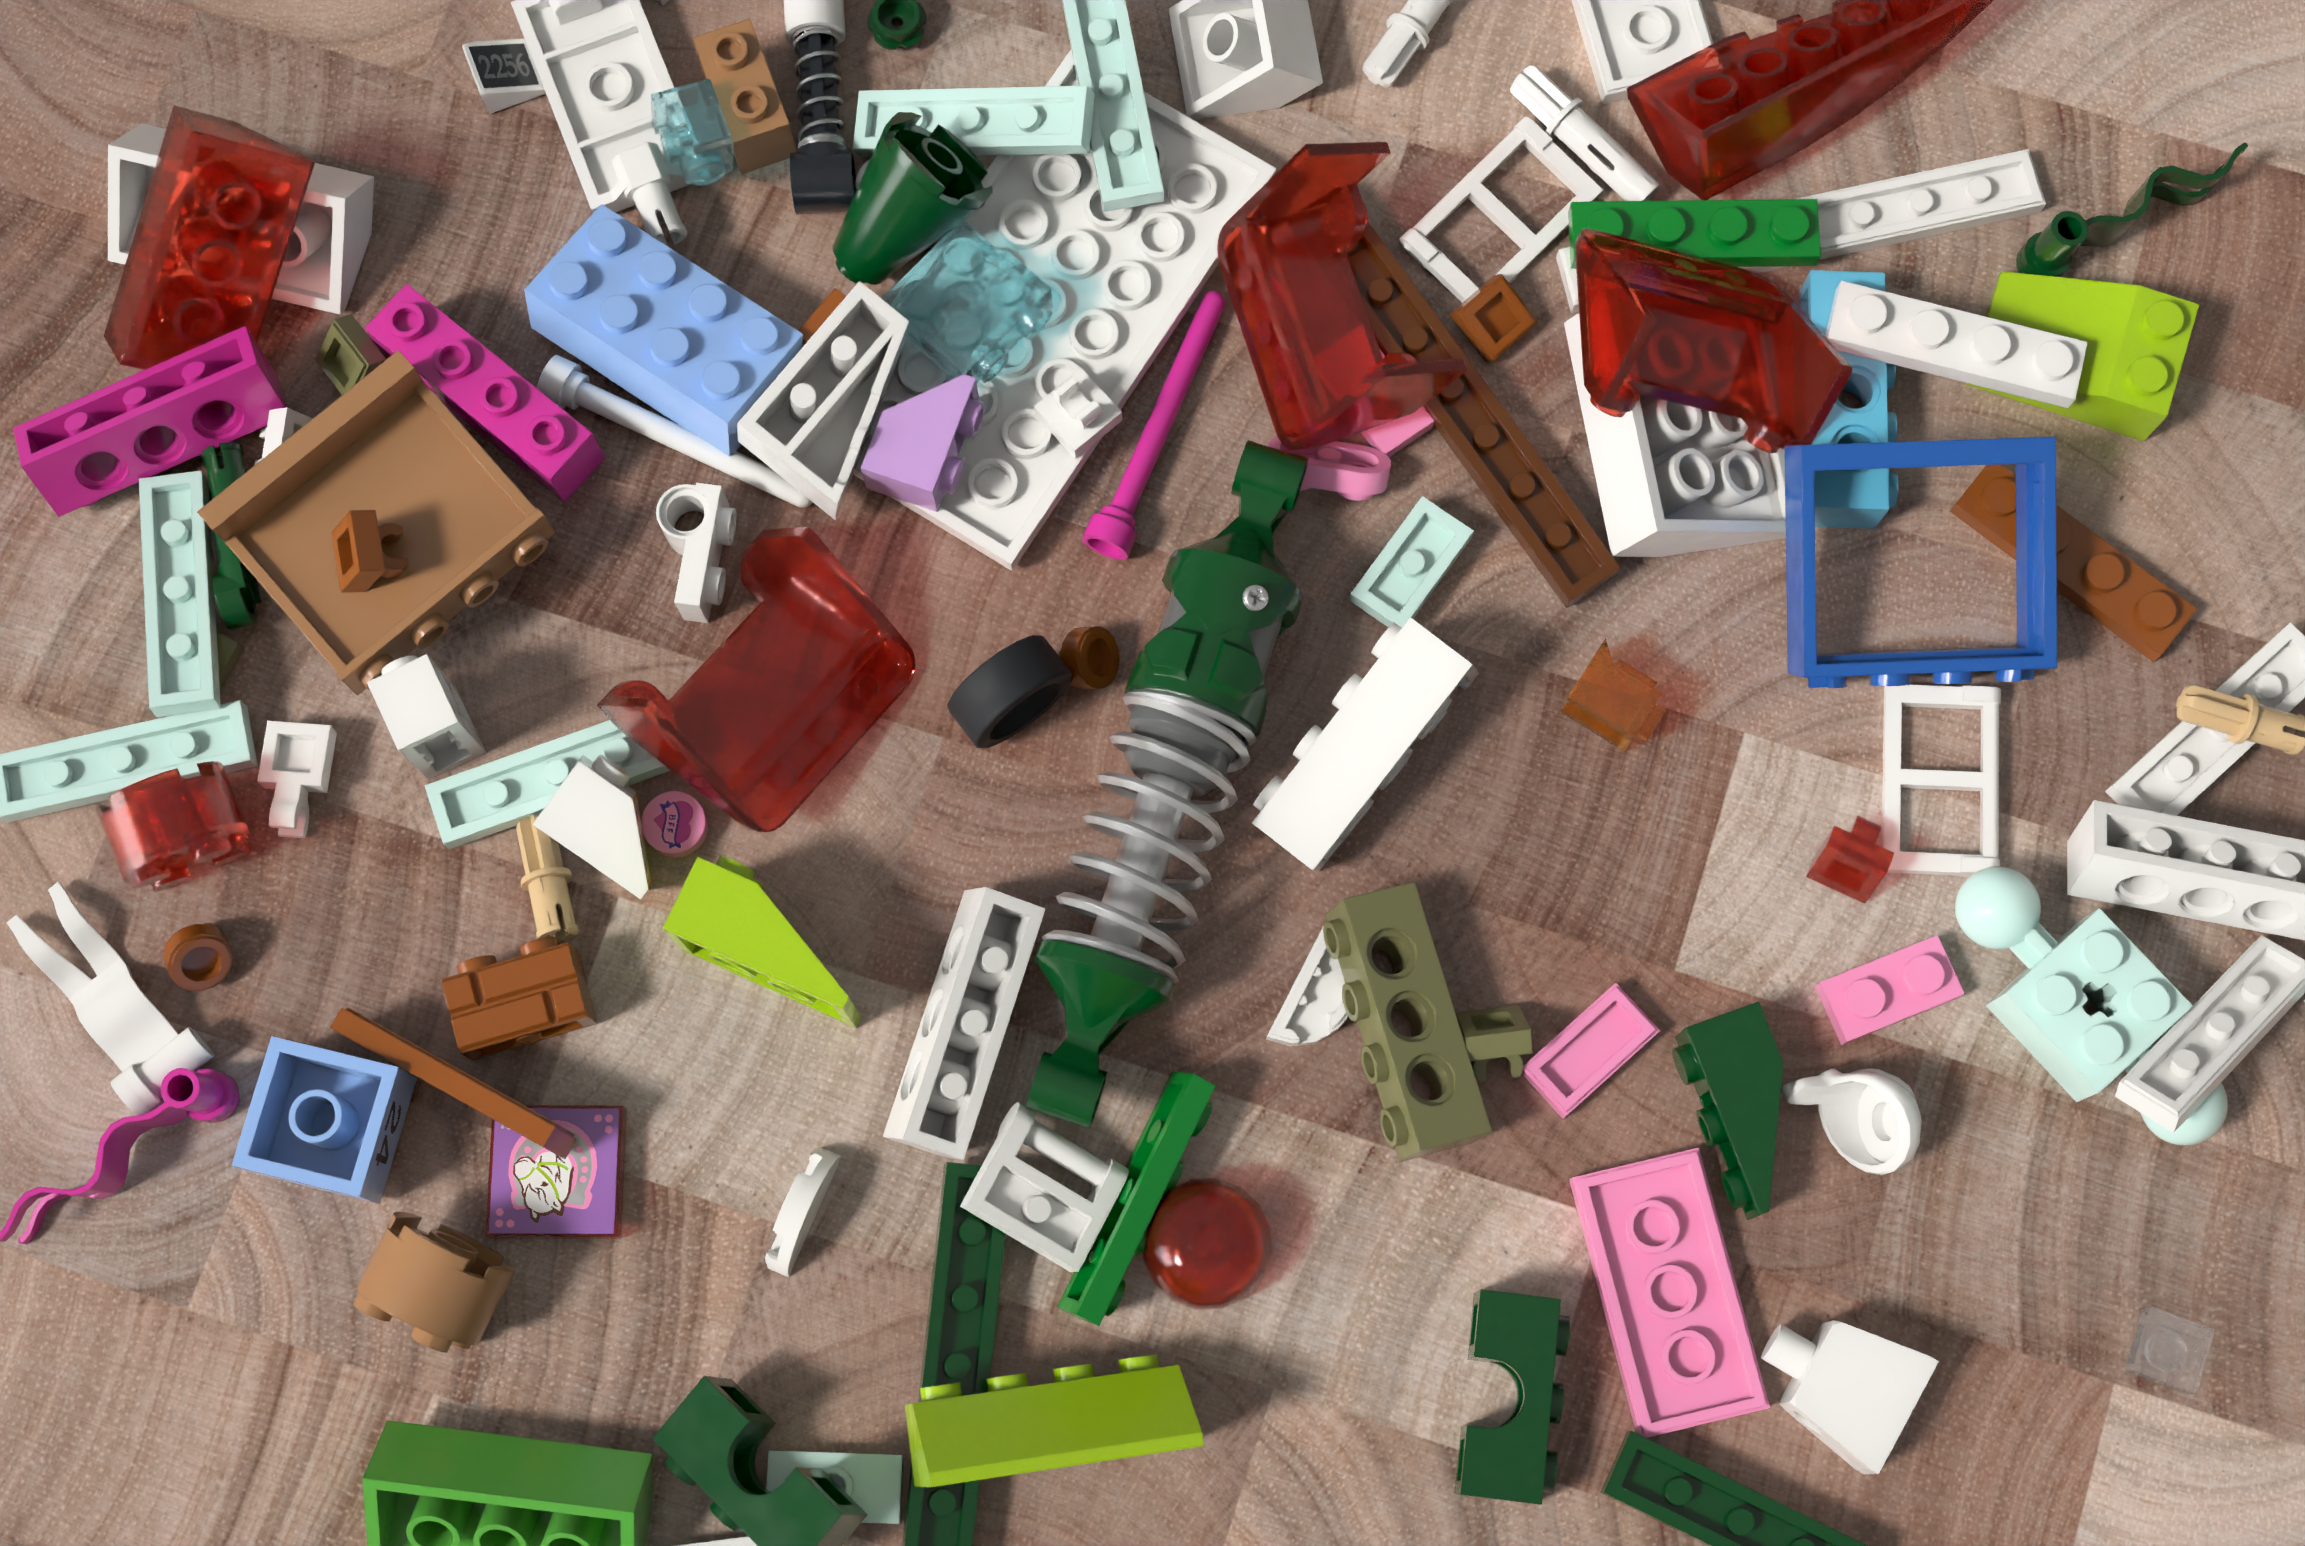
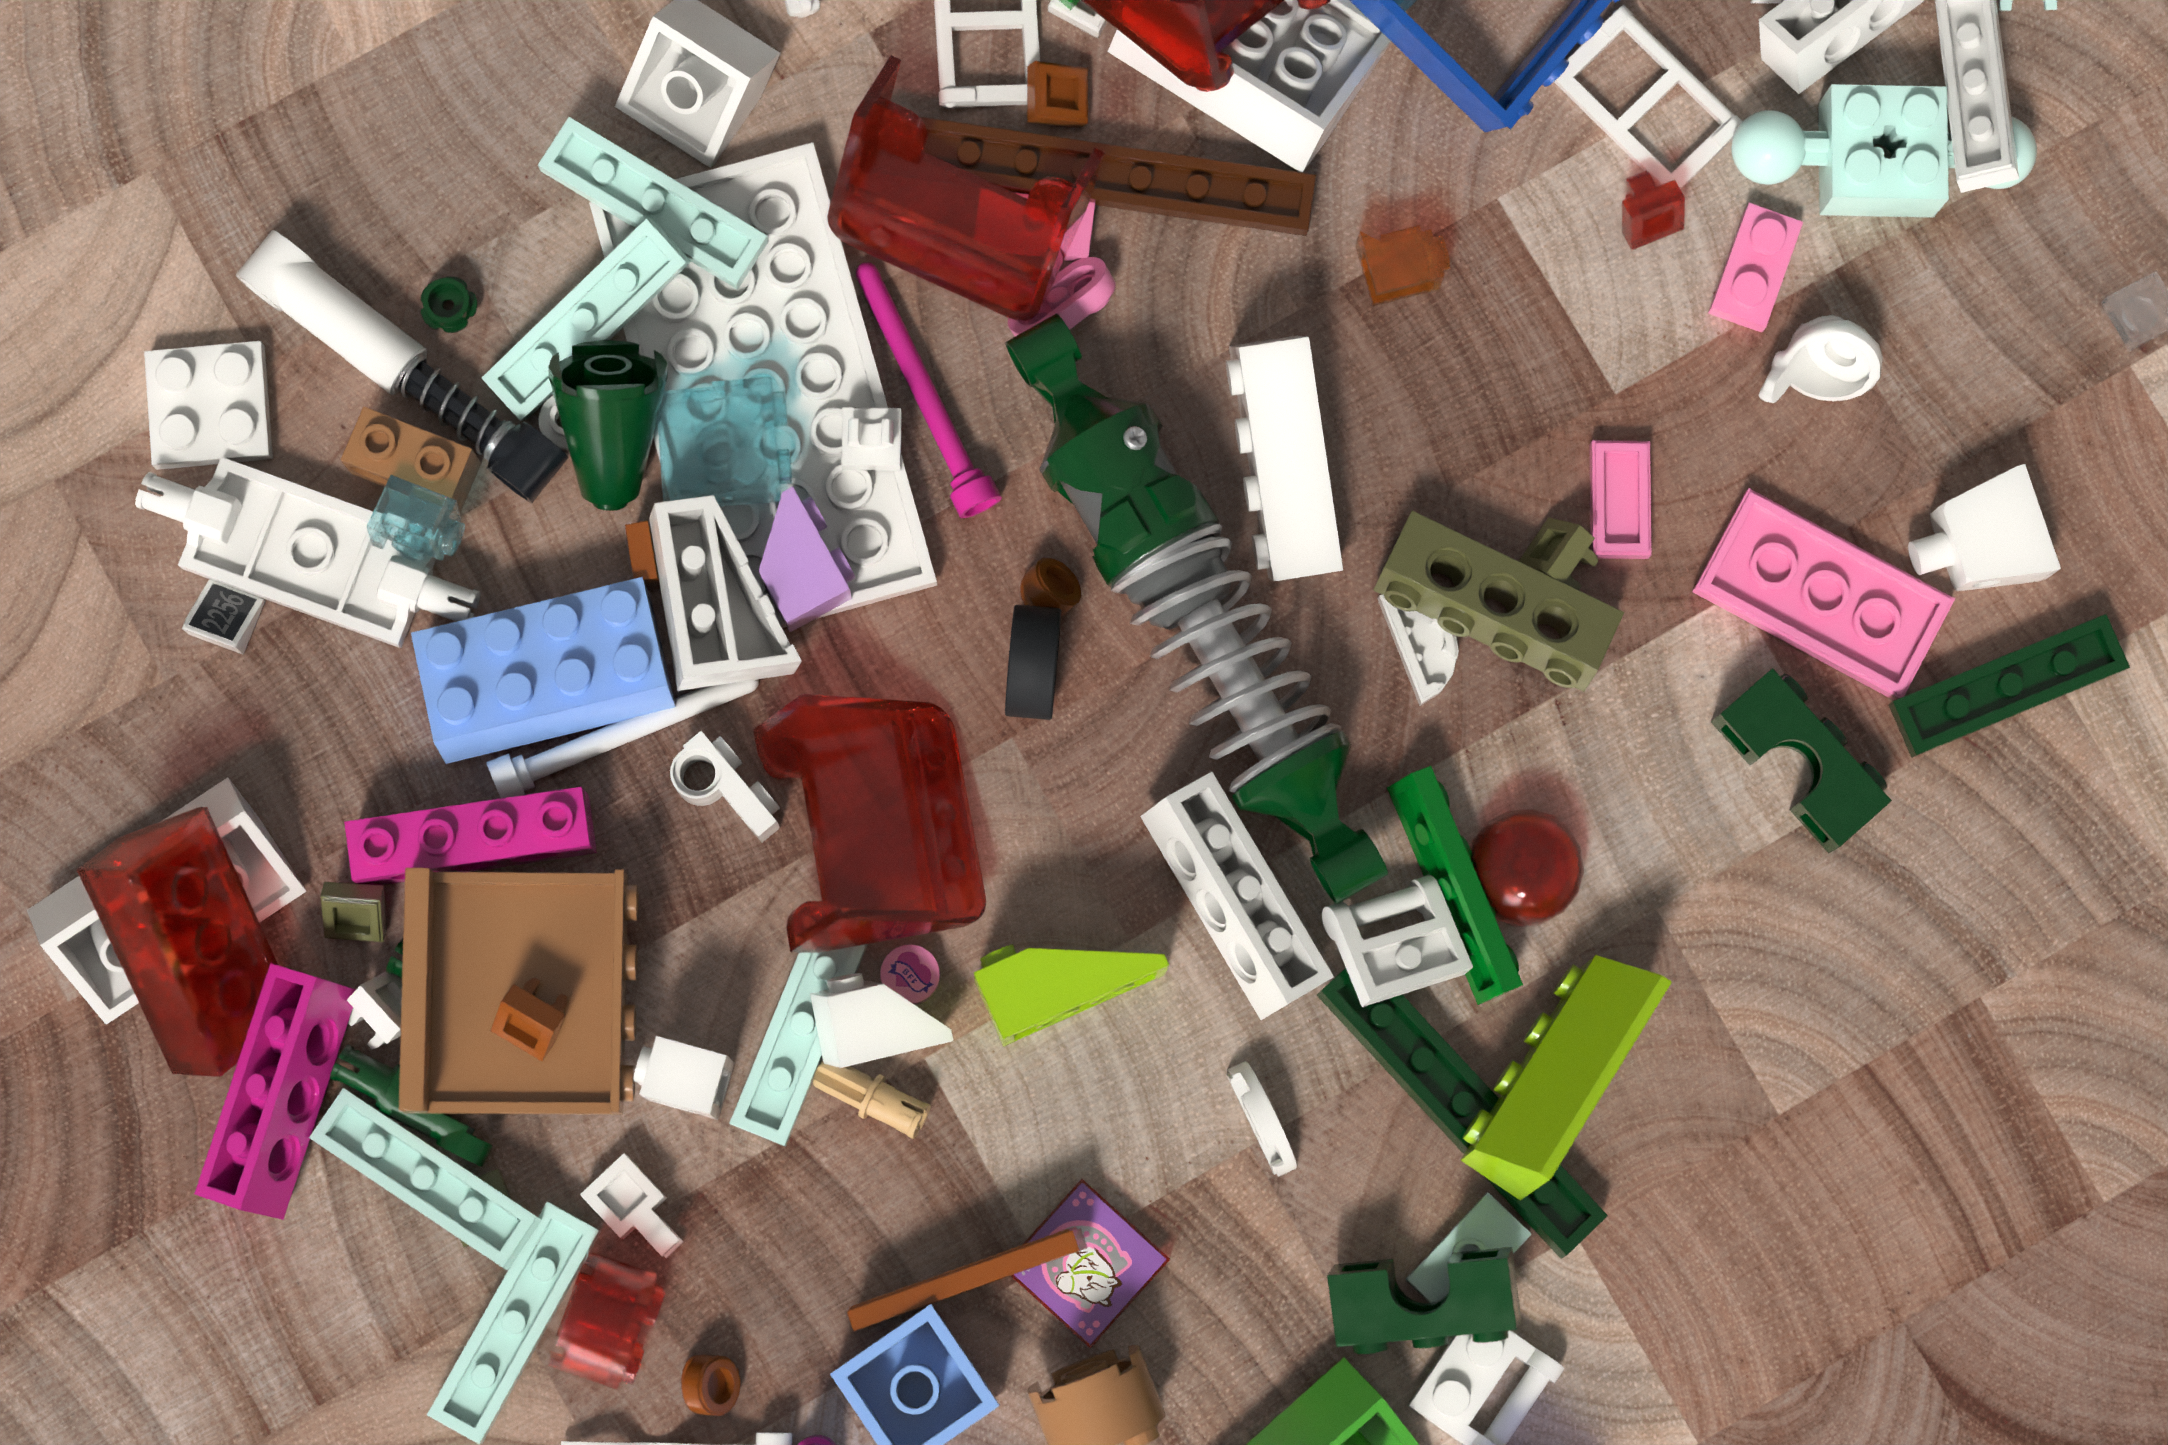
camera: 55 degrees left, 5 degrees up
(518, 998) = (943, 1185): dark orange brick -> none
(1411, 564) = (1184, 312): light aqua plate -> none
(1739, 1087) = (1734, 424): dark green slope -> none

